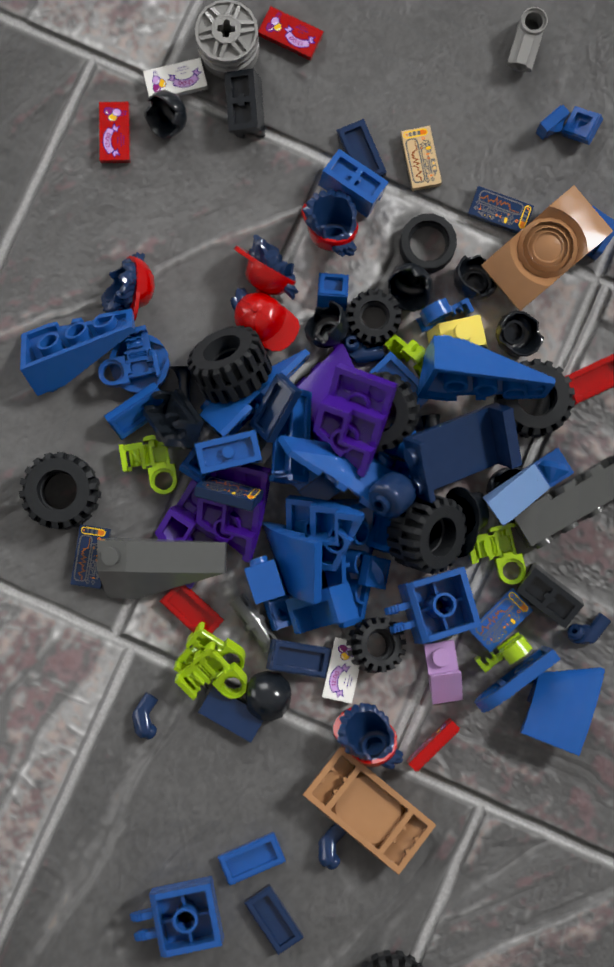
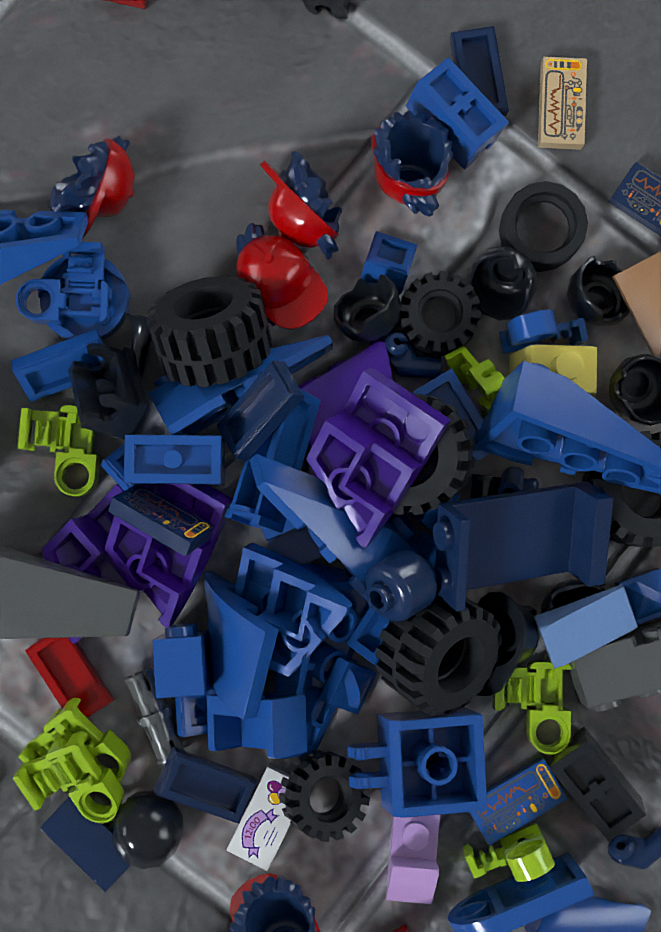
camera: 10 degrees right, 0 degrees up
(448, 412) = (513, 481): none -> dark blue arm

